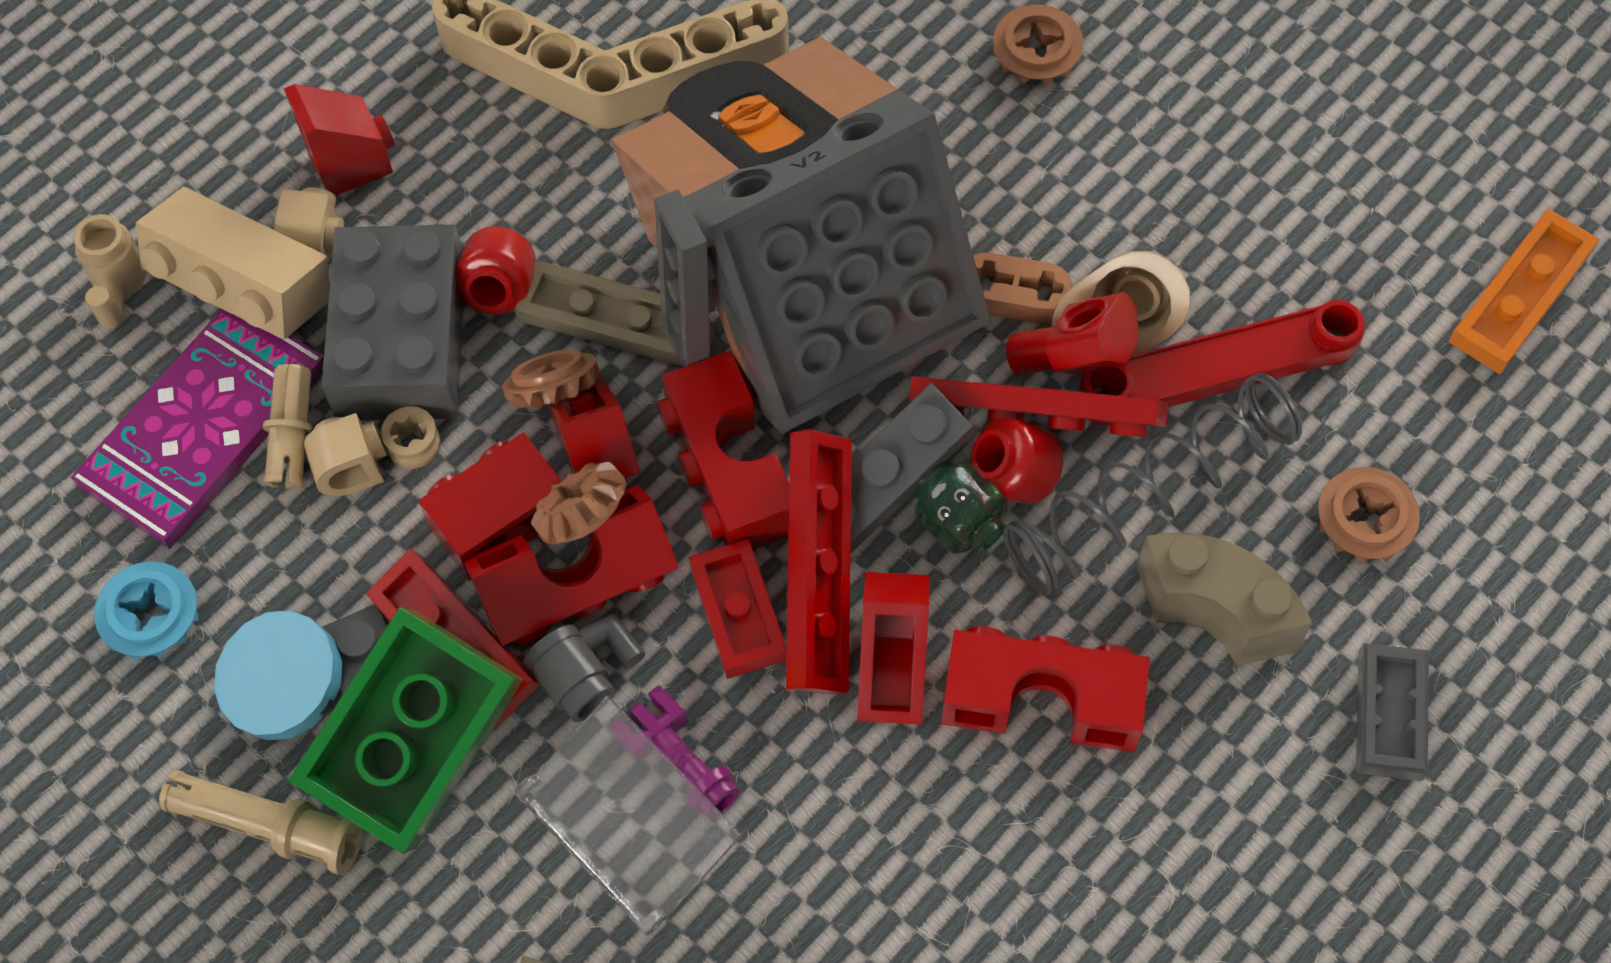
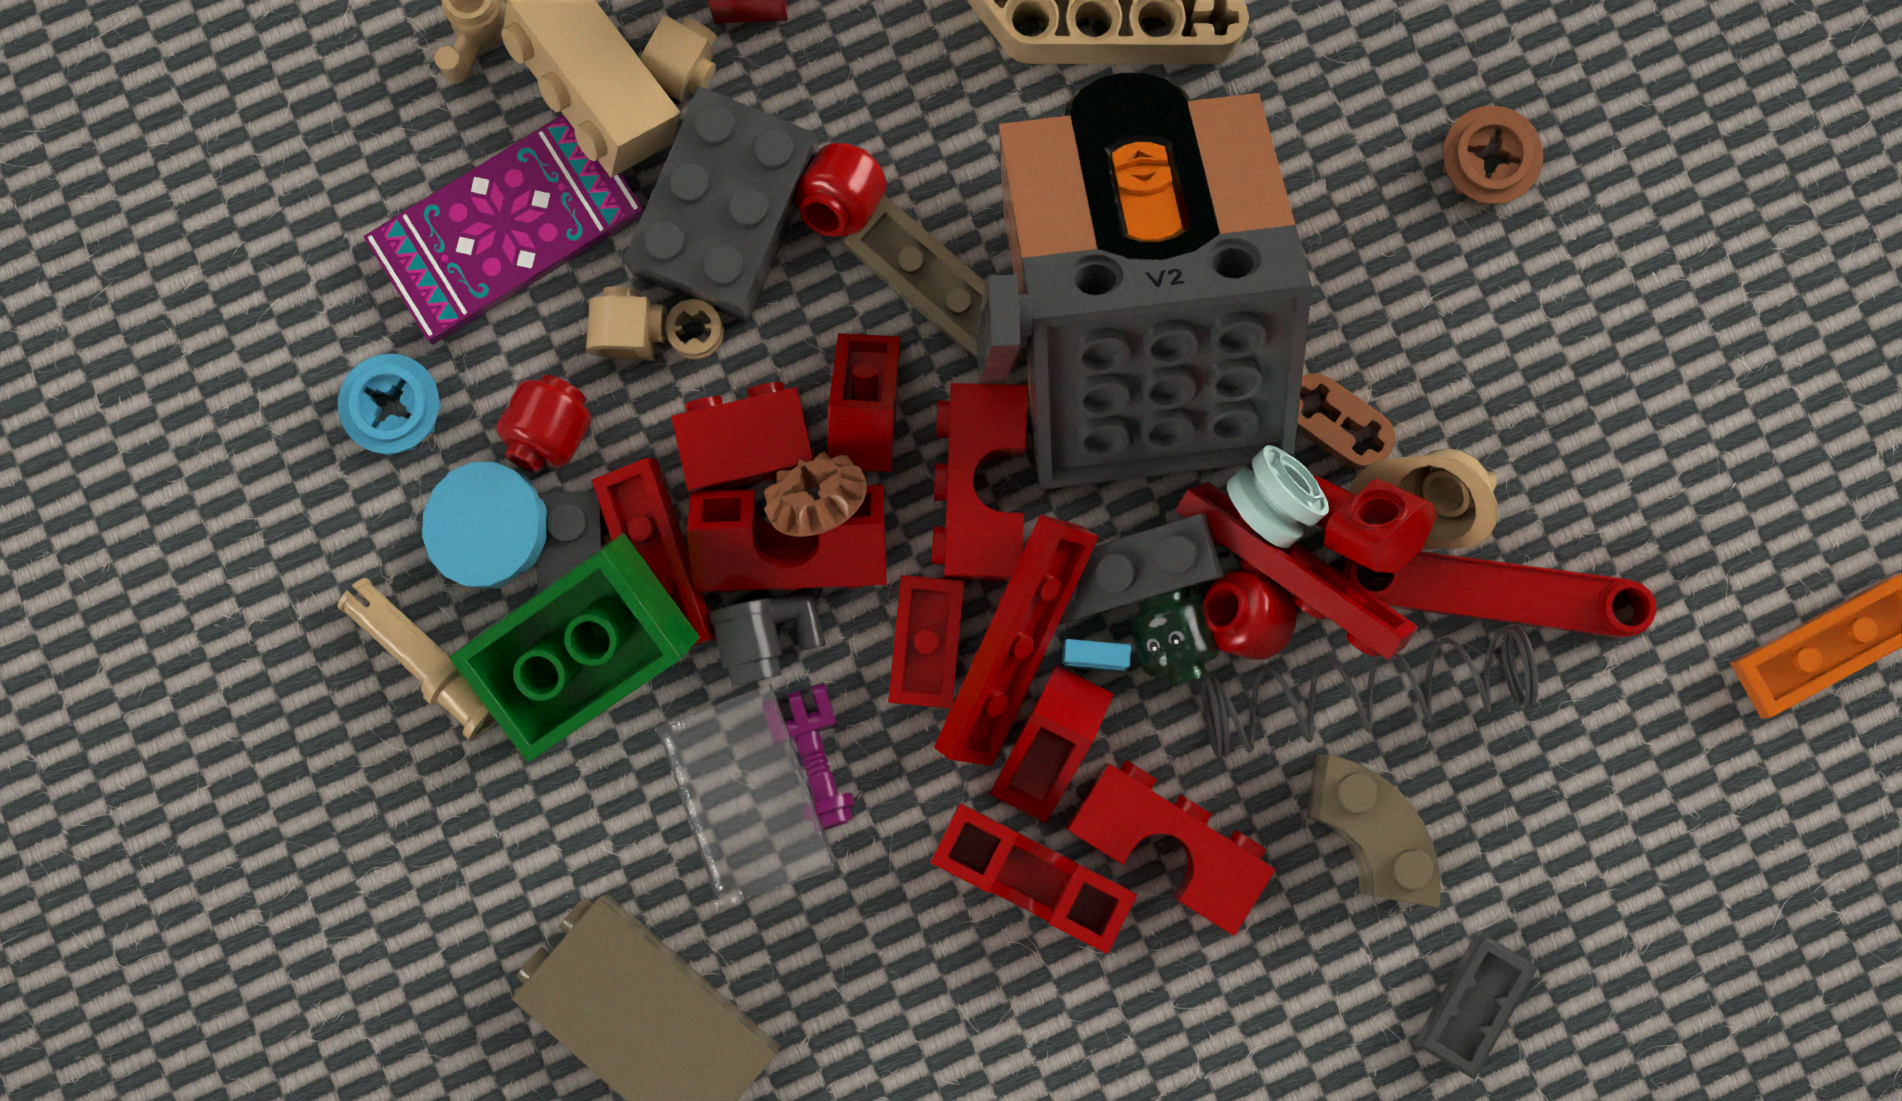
camera: 20 degrees right, 20 degrees up
(288, 426) = (582, 272): tan axle -> none
(301, 564) = (543, 423): none -> red head
(550, 378) = (823, 331): nougat gear -> none
(899, 551) = (1096, 655): none -> medium azure tile
(973, 769) = (1033, 877): none -> red arch
(992, 347) = (1277, 496): none -> light aqua wheel
(1377, 492) = (1576, 784): nougat gear -> none

